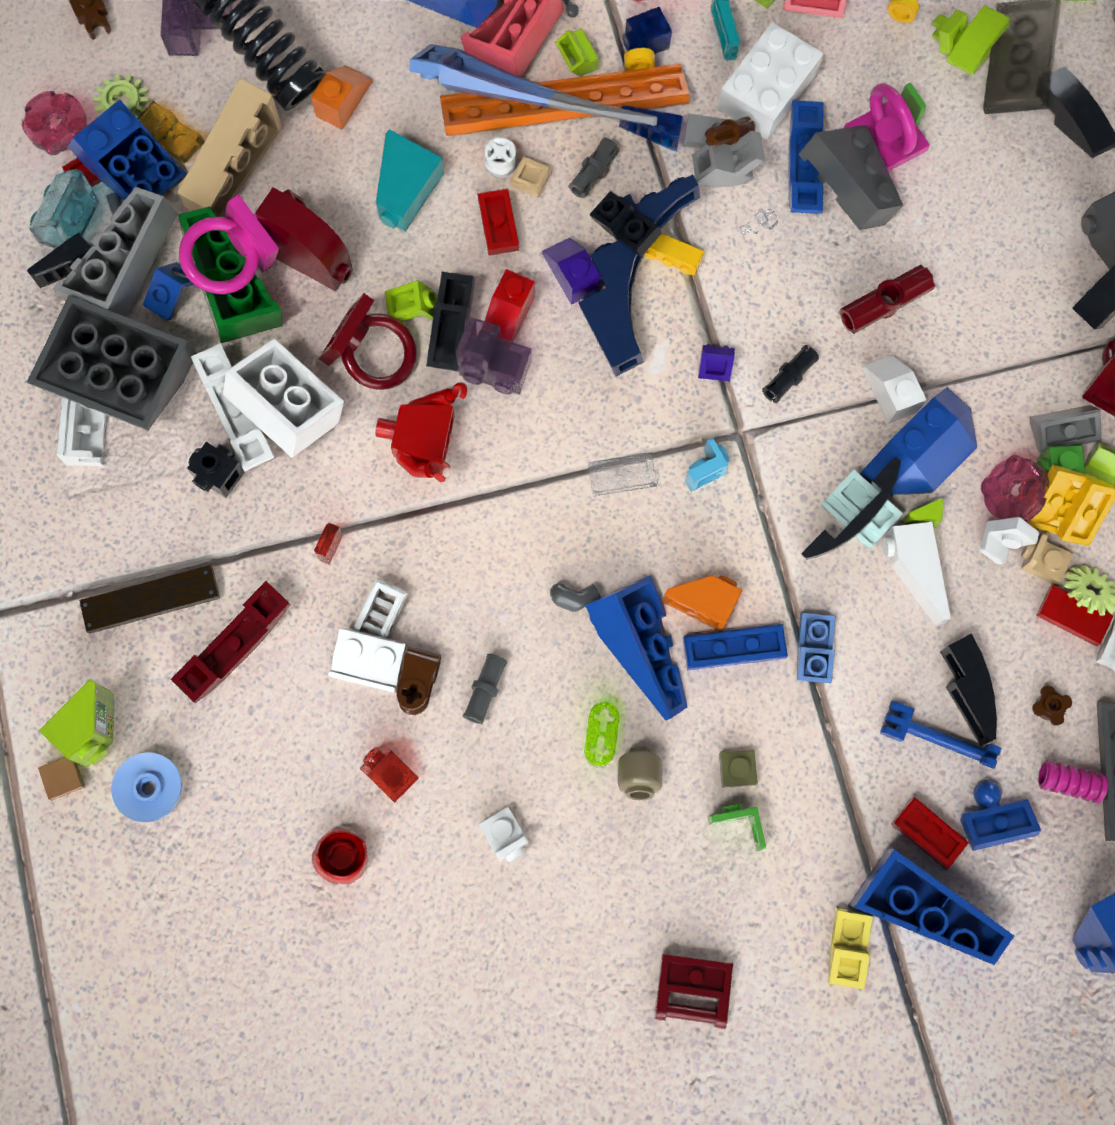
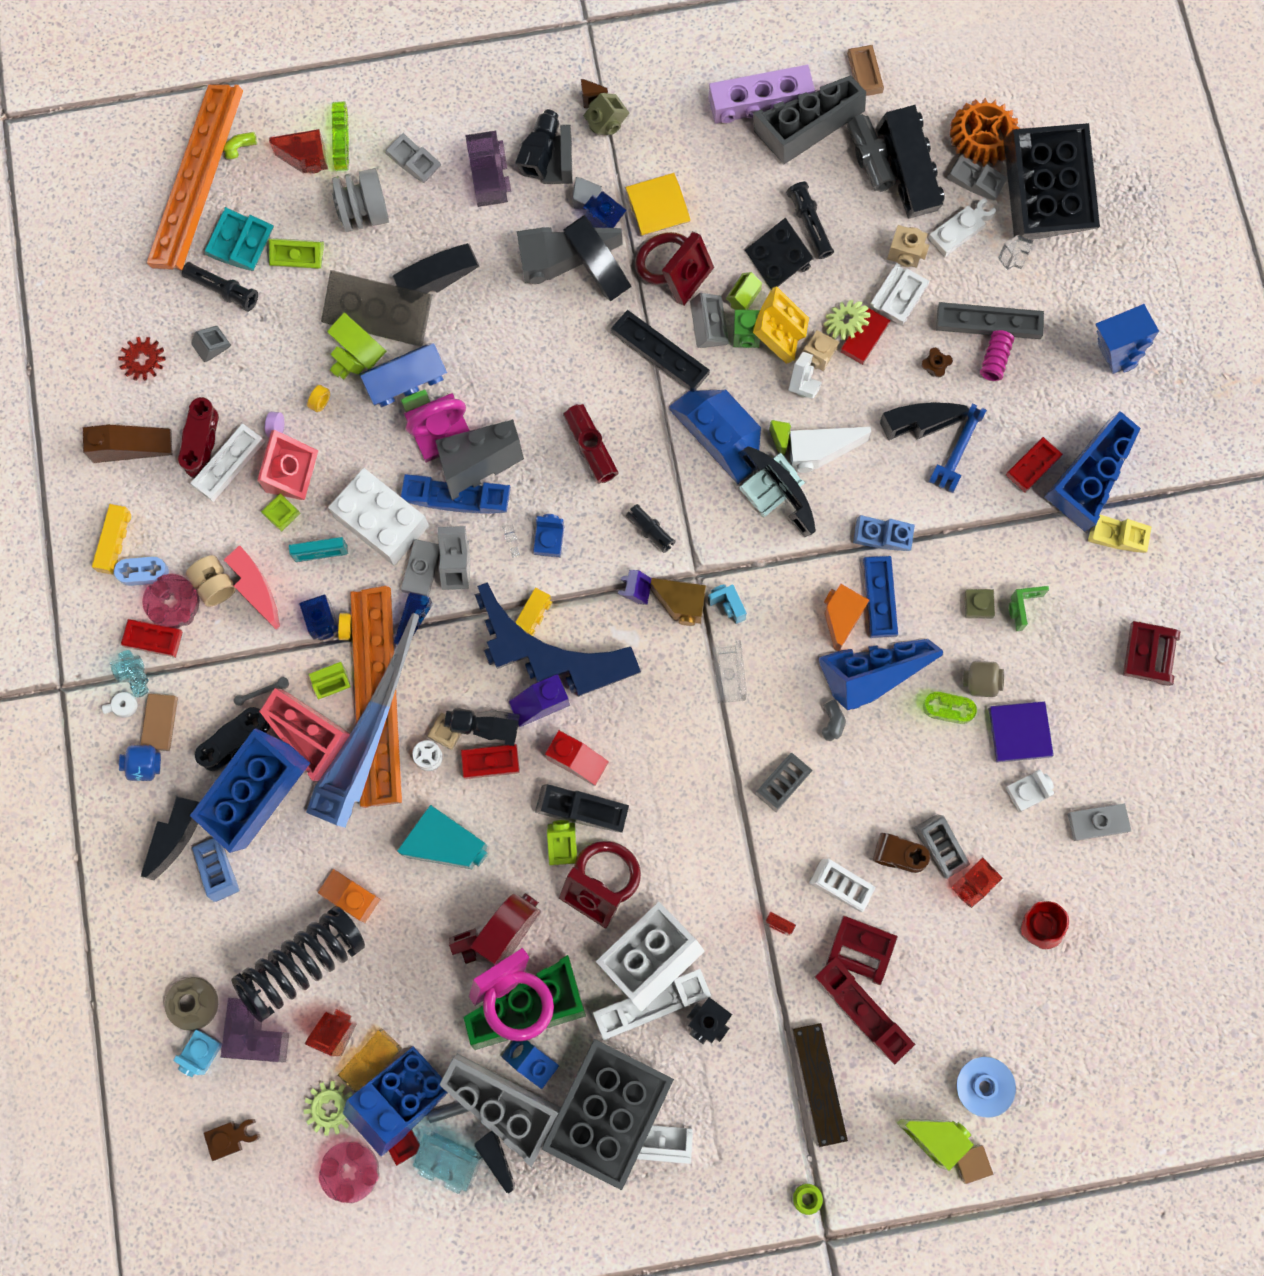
camera: 80 degrees left, 0 degrees up
(17, 584) = (816, 1203): none -> lime plate
(191, 85) = (332, 1033): none -> clear red slope
(231, 149) = (405, 1001): tan wedge -> none
(313, 641) = (866, 941): none -> dark red plate
(367, 659) = (882, 895): white plate -> none
(423, 432) = (687, 837): red torso -> none
(437, 740) = (928, 841): none -> dark grey slope
(471, 924) = (1099, 822): none -> light grey plate
(482, 516) = (771, 800): none -> dark grey slope
(484, 688) = (910, 799): dark grey pin -> none
(491, 360) = (623, 772): clear purple brick -> none
(537, 210) = (485, 724): none -> black piece
(578, 823) = (1021, 732): none -> dark purple tile
(593, 167) = (444, 675): dark grey pin -> none
(625, 224) = (516, 647): black slope -> none
(704, 412) = (680, 599): none -> pearl gold slope
(729, 131) = (431, 553): reddish brown axle -> none
(768, 264) = (549, 535): none -> blue bracket
(894, 388) = (668, 447): white slope -> none
(943, 86) = (403, 374): none -> slope
(998, 822) = (1027, 413): blue plate -> none
(1002, 479) = (764, 379): clear pink plate -> none
(1016, 371) = (660, 351): none -> black plate

